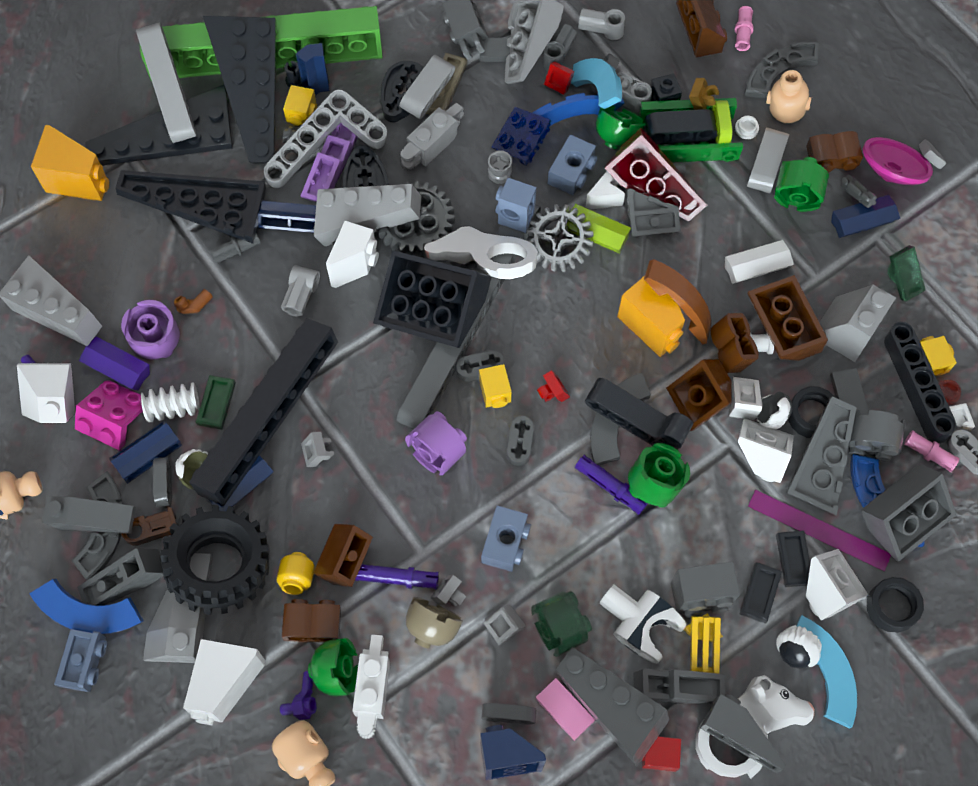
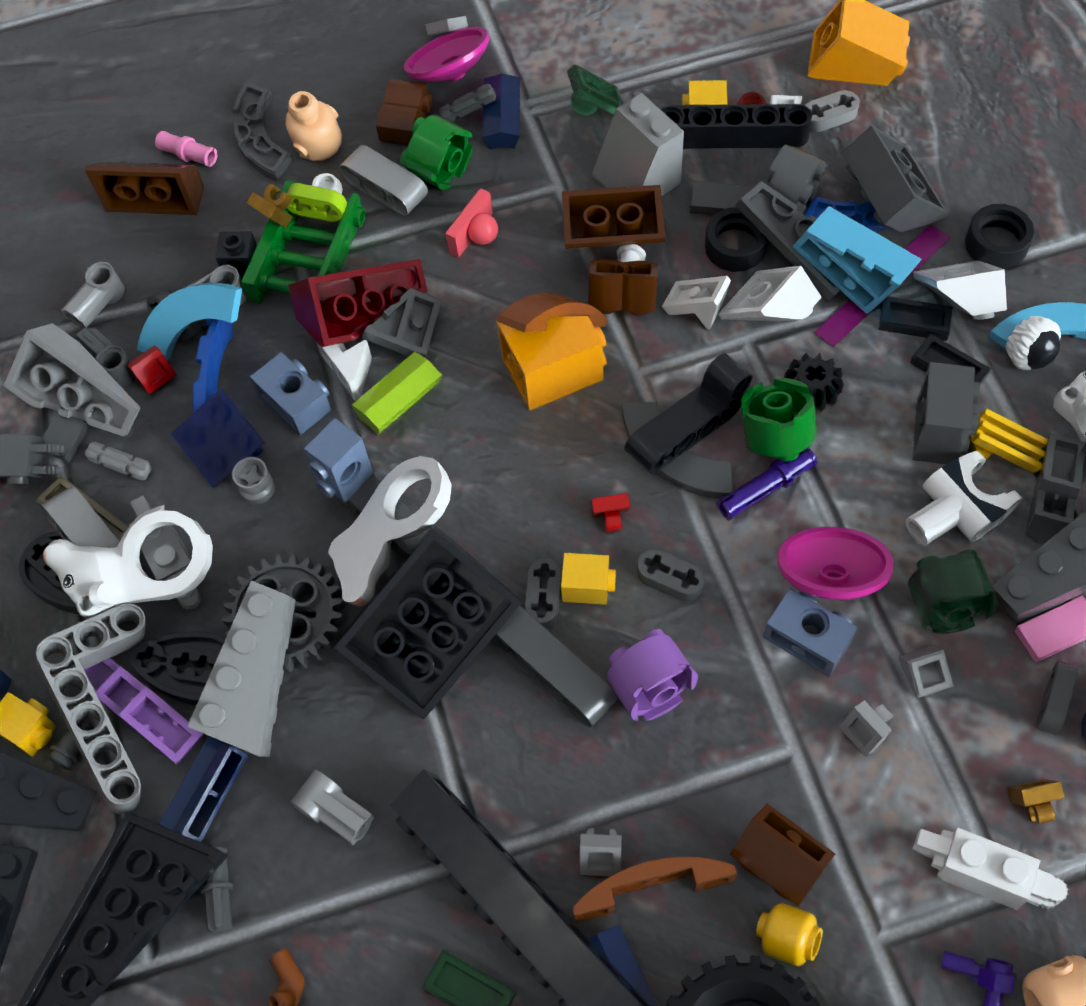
camera: 65 degrees left, 5 degrees down
(288, 460) = (704, 874): none -> dark orange slope
(311, 621) = (870, 931): reddish brown brick -> none
(334, 667) = (951, 916): green cylinder -> none
(352, 254) = (309, 707): white slope -> none
(398, 110) = (114, 576): none -> white animal
(398, 576) = (832, 777): dark purple pin -> none
(431, 624) = (913, 758): dark tan cylinder -> none
(431, 711) = (1037, 798): none -> pearl gold tile
(489, 85) = (118, 460): none -> light grey axle
(548, 235) = (386, 425): light grey gear -> none
(558, 540) = (835, 563): none -> dark pink dish
(617, 126) = (264, 320): green cylinder -> none
(681, 126) = (300, 246): black beam -> none
(702, 391) = (676, 342): reddish brown slope -> none
(714, 501) = (820, 377): none -> black gear
(752, 230) = (473, 225): none -> coral tile
(758, 261) = (518, 233): white piece -> none
(775, 410) = (731, 264): hair -> none
(818, 492) = (855, 258): none -> medium azure wedge
(931, 451) = (822, 142): bright pink pin -> none

